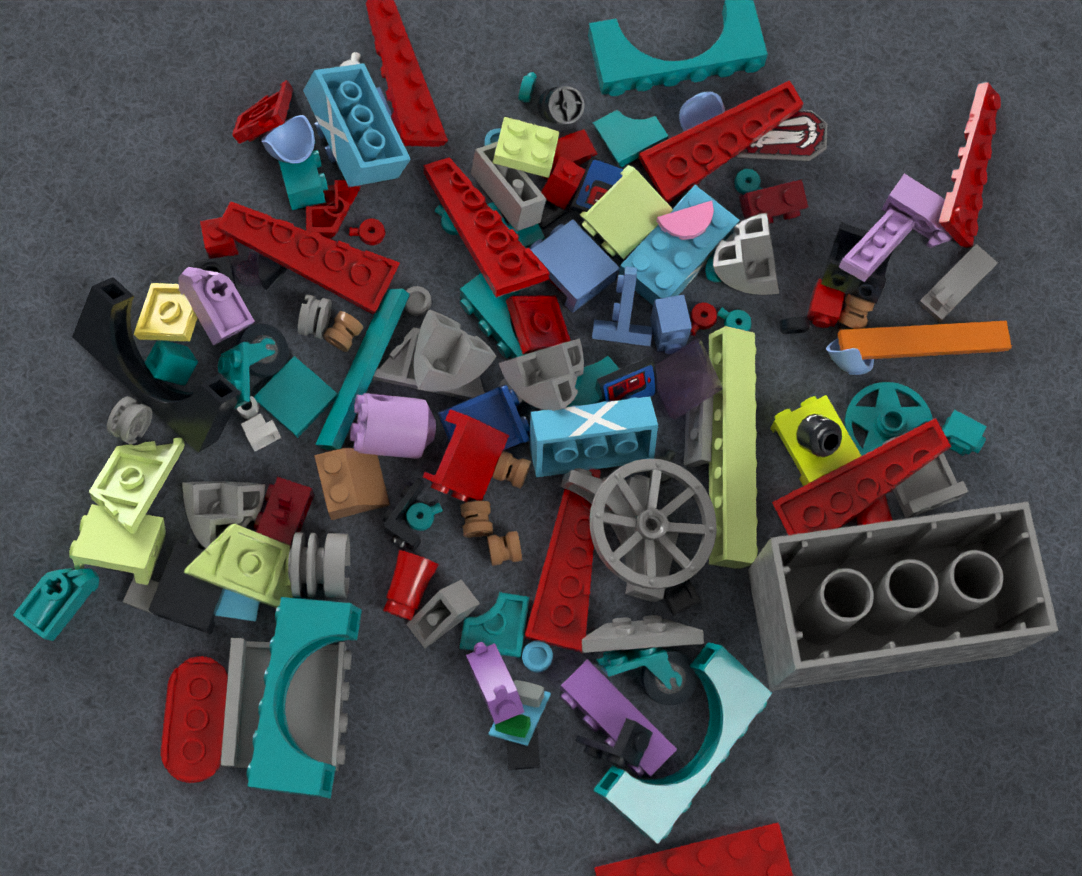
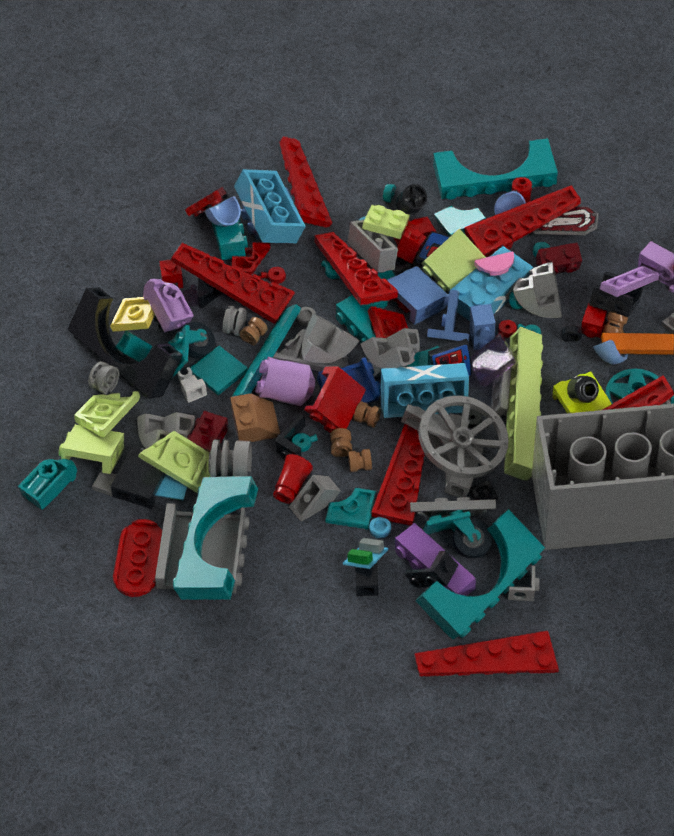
camera: 10 degrees right, 20 degrees down
(494, 682) = (348, 533): medium lavender brick -> none
(717, 80) = (522, 186): none -> red brick
(757, 750) = (530, 592): none -> light grey bracket

